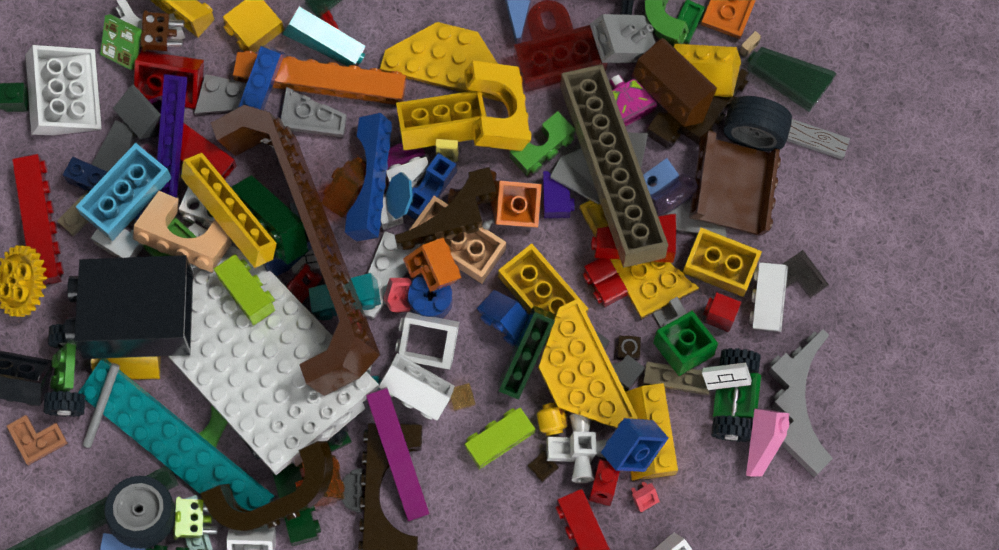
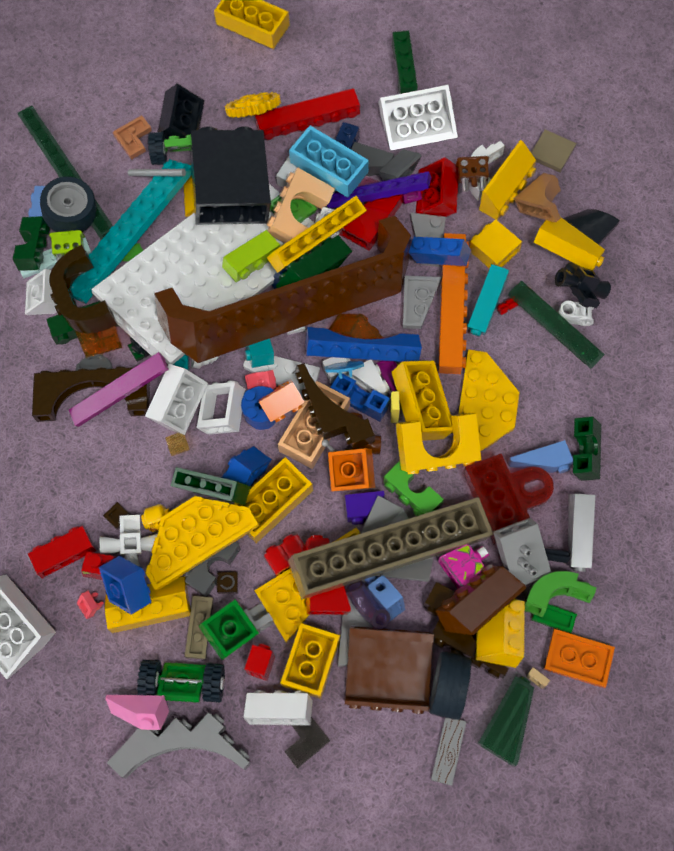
camera: 90 degrees right, 5 degrees down
(120, 41) = (464, 147): bright green tile -> none
(499, 437) = (140, 475): lime brick -> none
(726, 376) = (195, 668): white tile -> none

